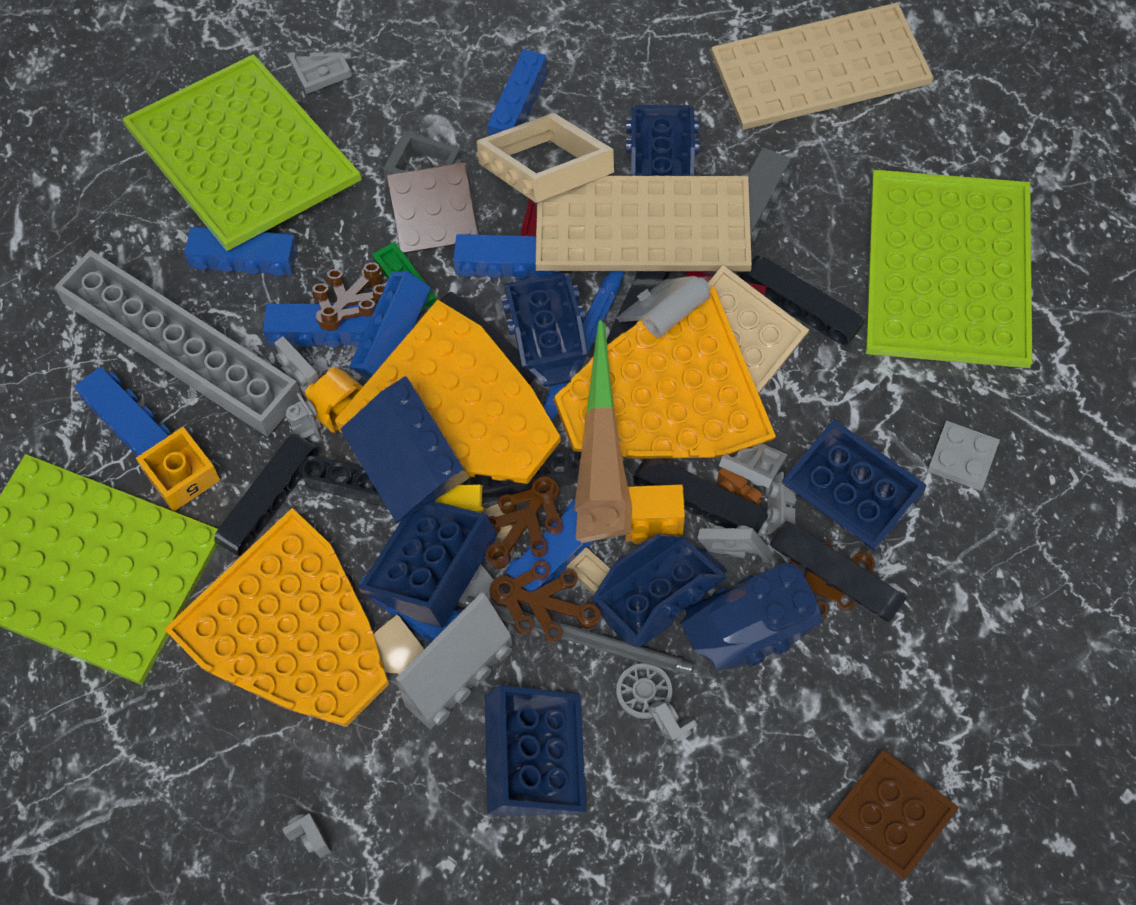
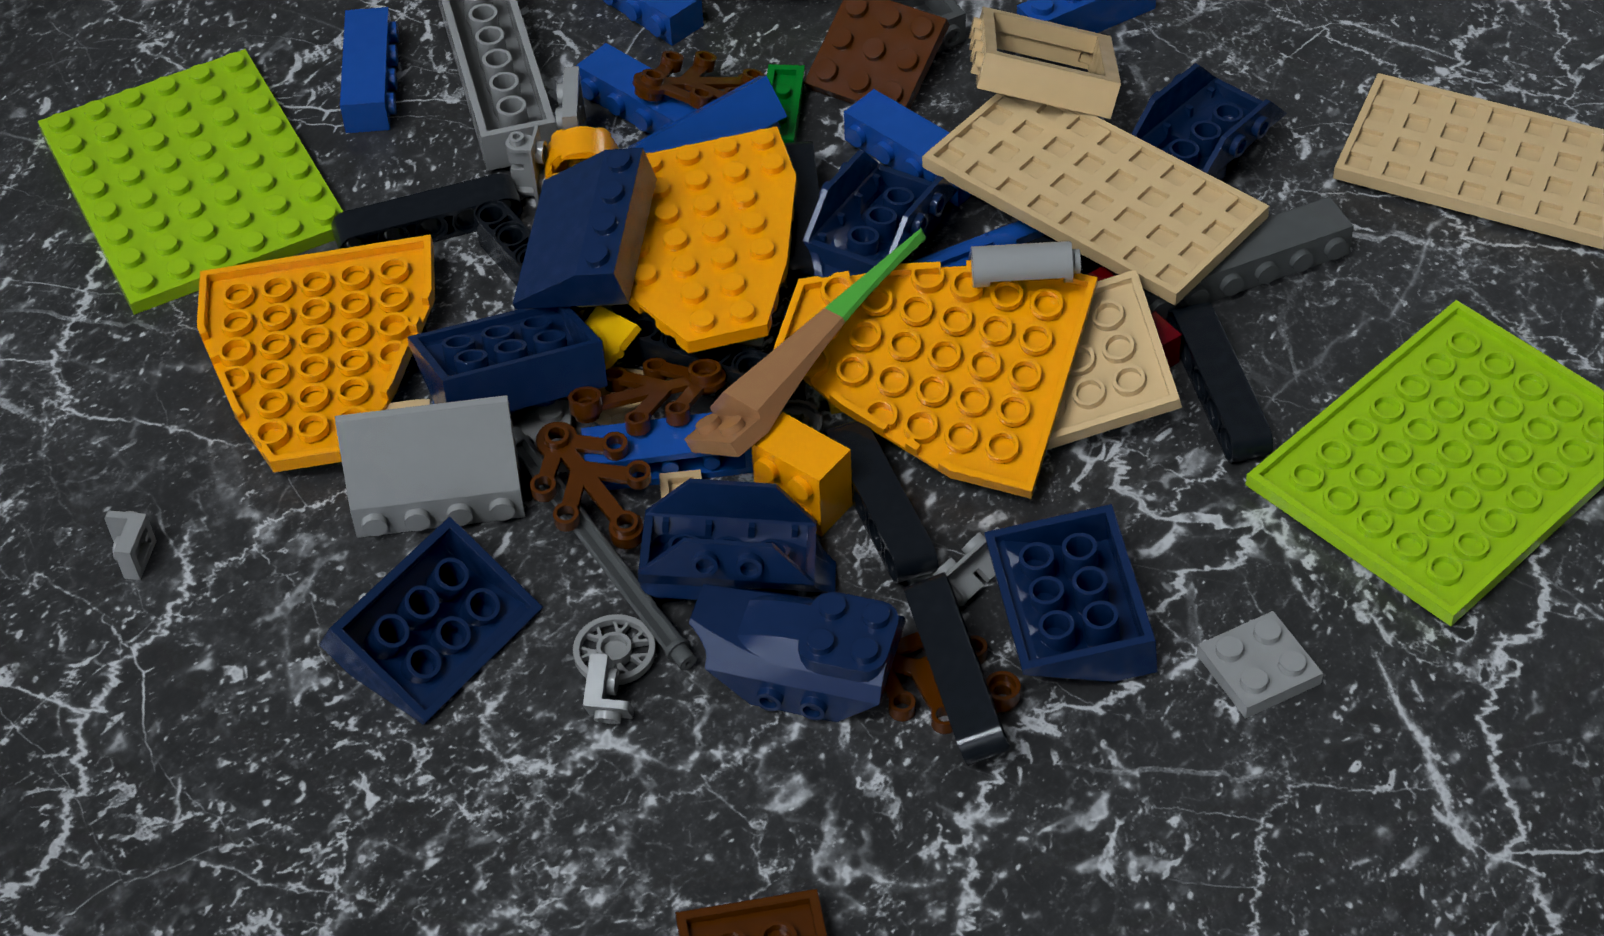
camera: 40 degrees right, 15 degrees down
(178, 469) = (363, 139): light orange brick -> none
(734, 542) = (870, 565): light grey wing -> none
(738, 485) = (933, 512): dark orange plate -> none
(757, 464) = (974, 502): light grey wing -> none

